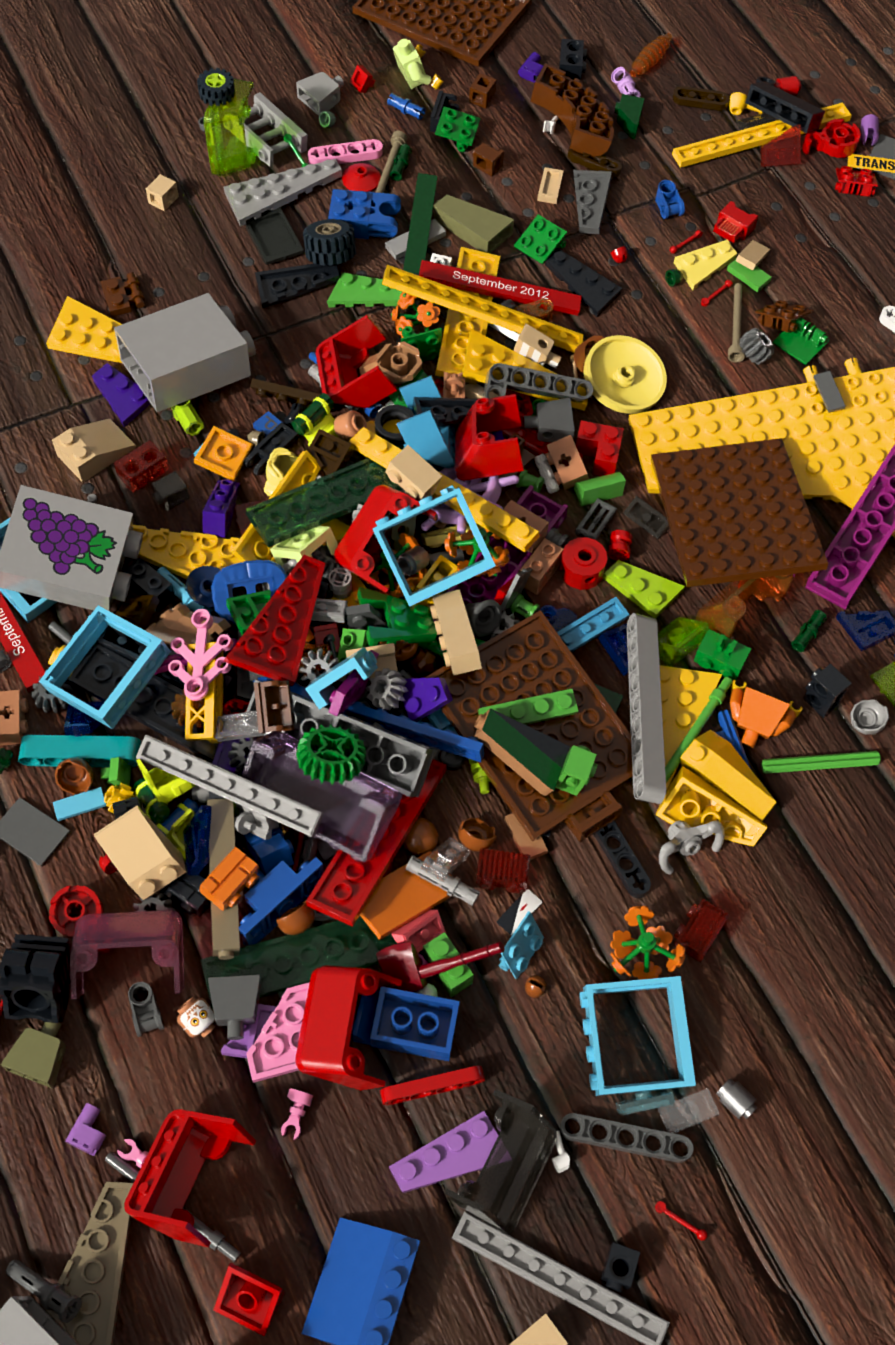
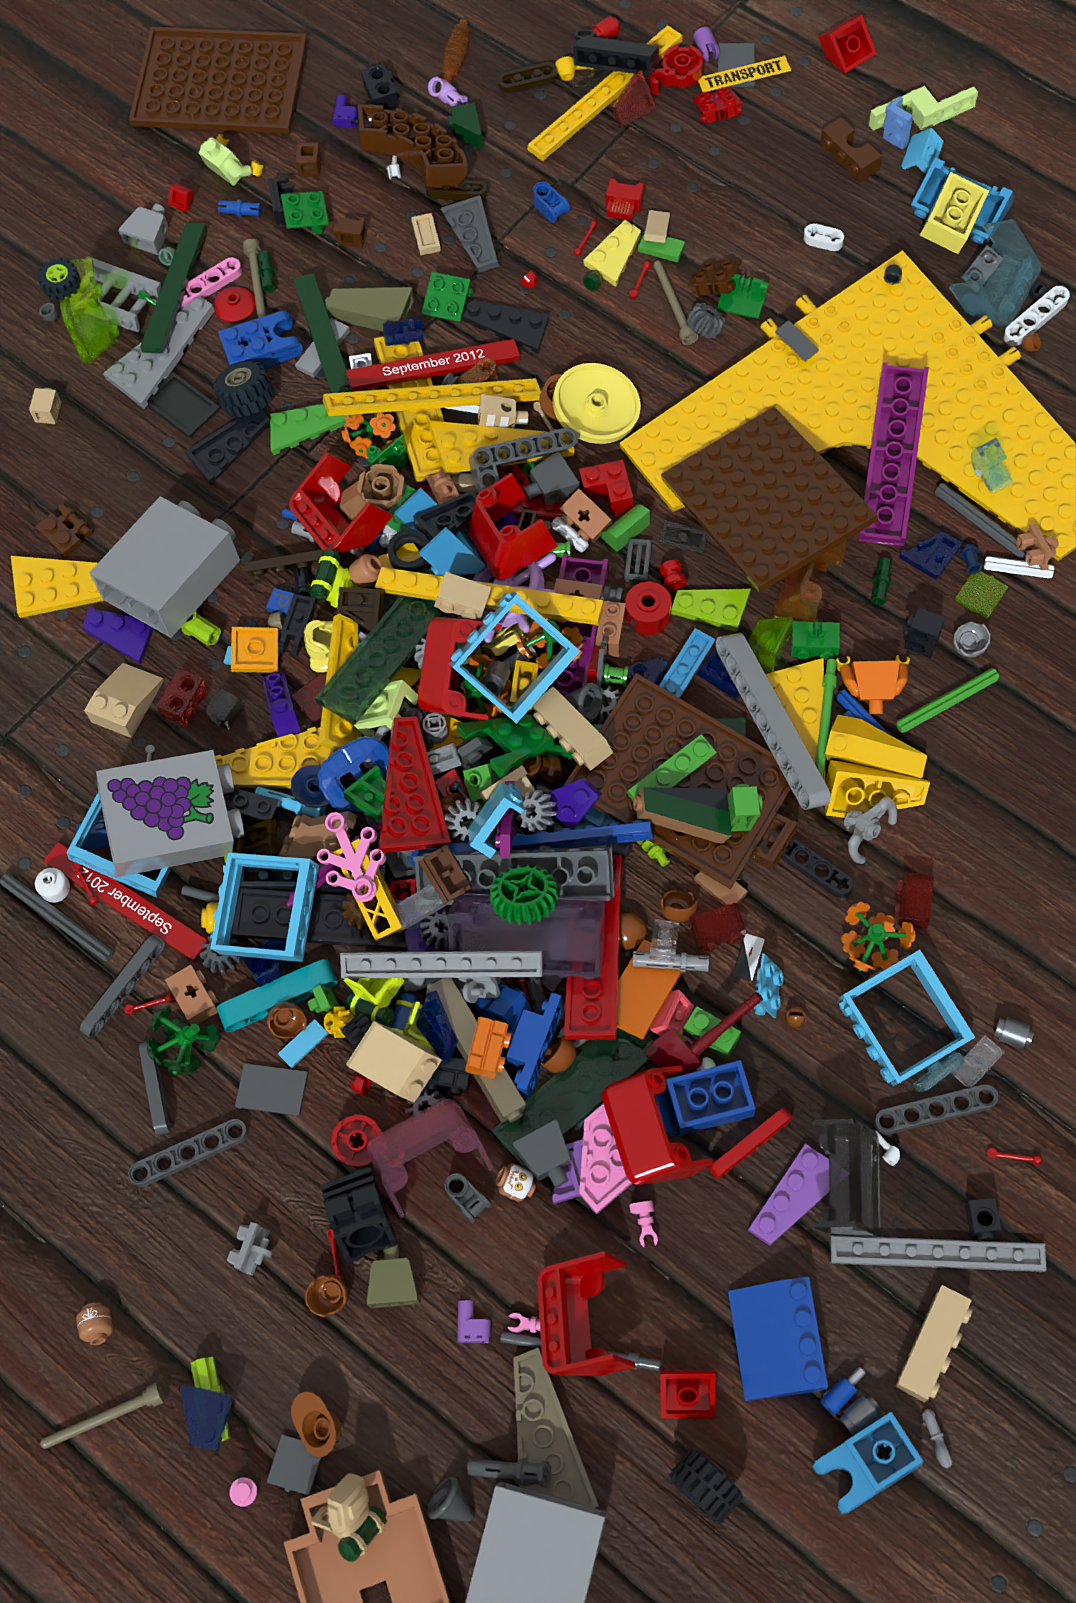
camera: 15 degrees left, 5 degrees up
(316, 144) = (173, 288): none -> dark green tile
(487, 250) = (403, 331): none -> clear blue hips

